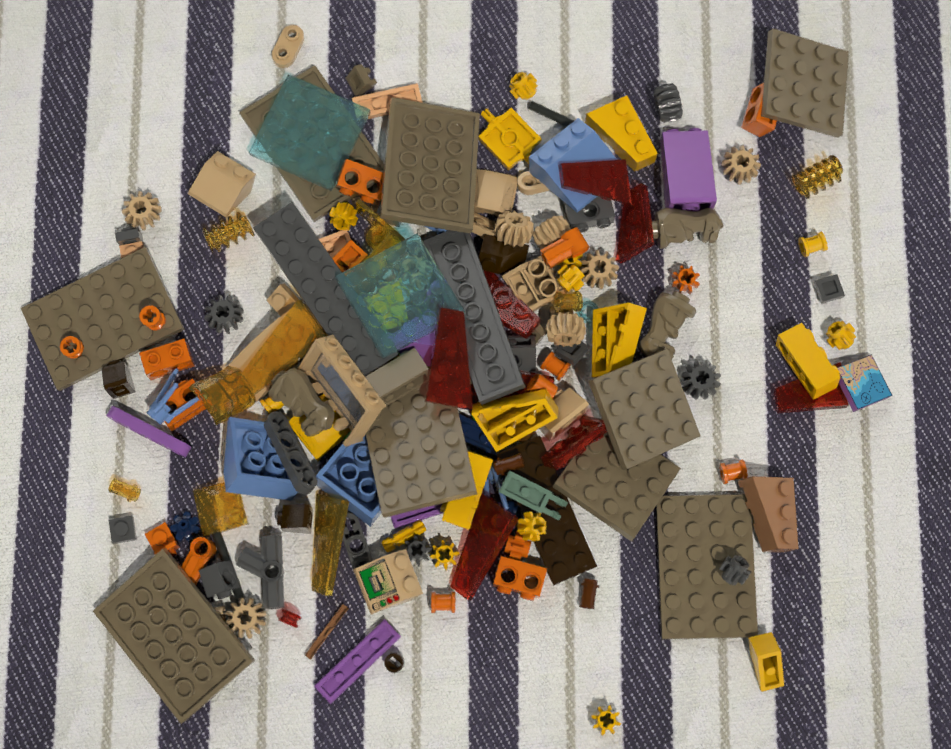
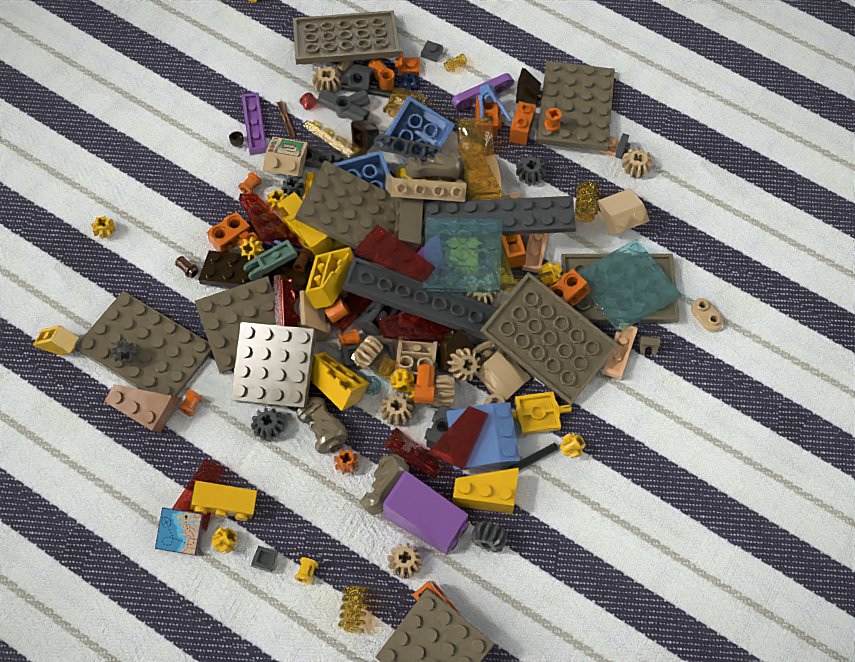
camera: 125 degrees right, 15 degrees down
(65, 342) = (570, 75): orange bush -> none

